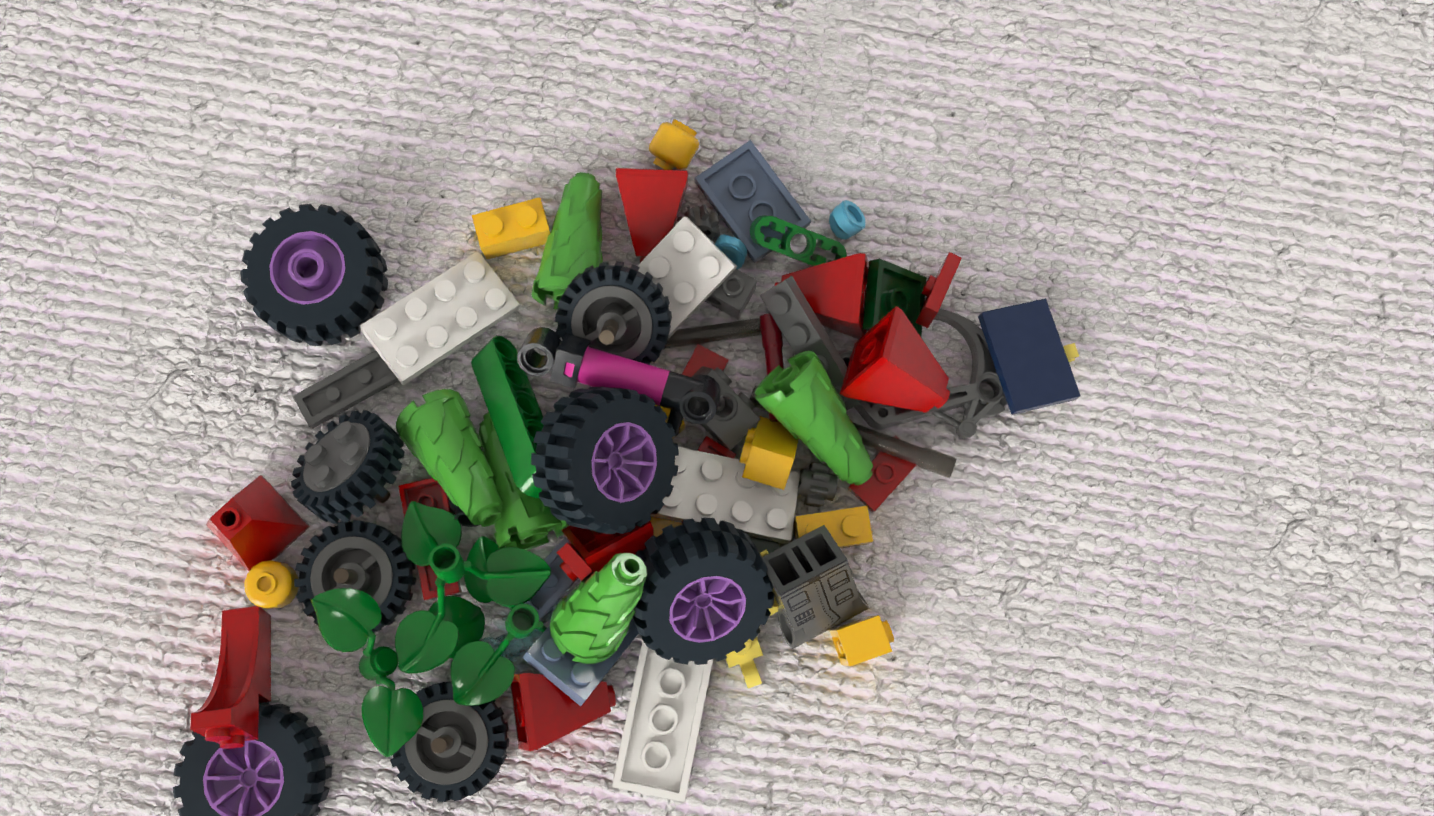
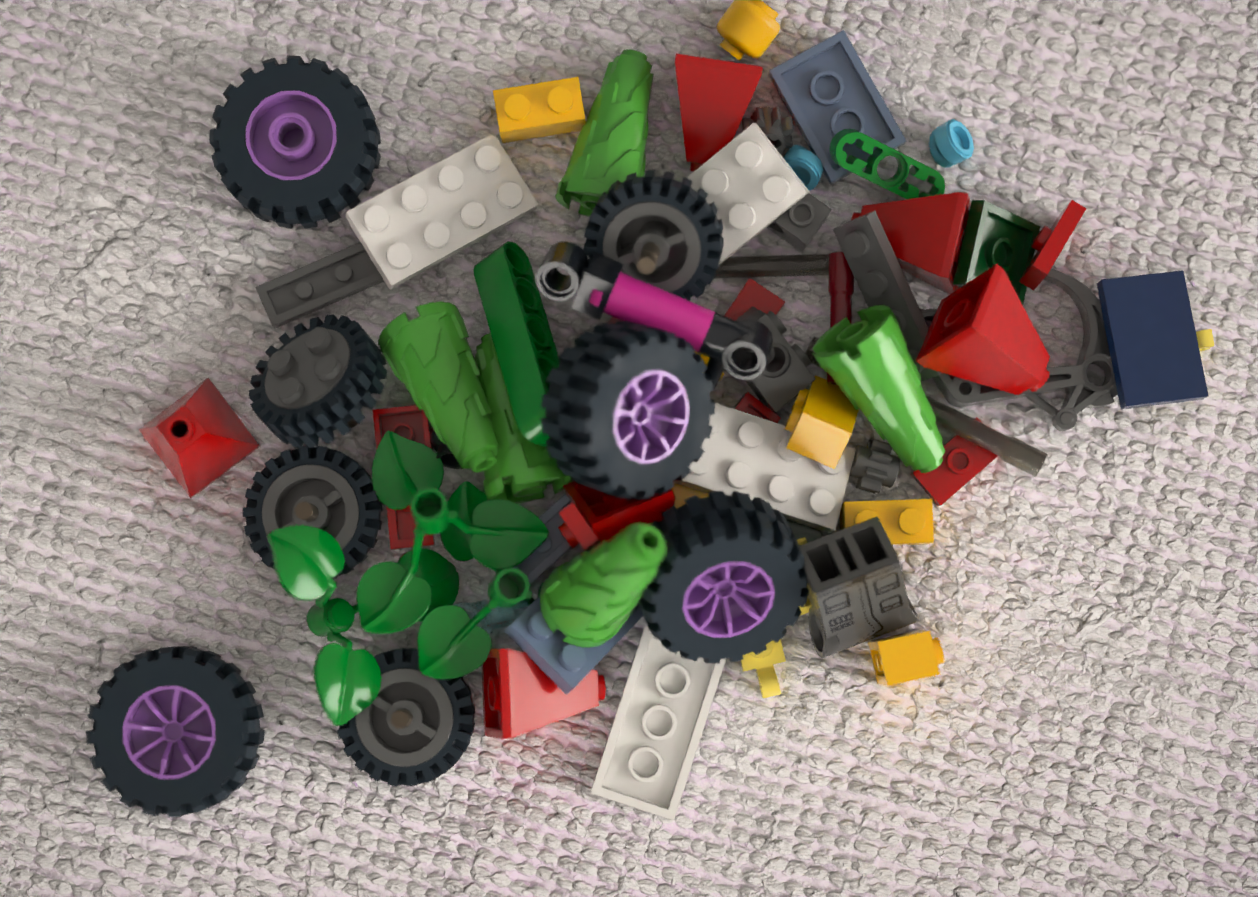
camera: 10 degrees right, 5 degrees up
(240, 680) = (173, 615): red arch -> none
(271, 584) = (213, 510): yellow head -> none

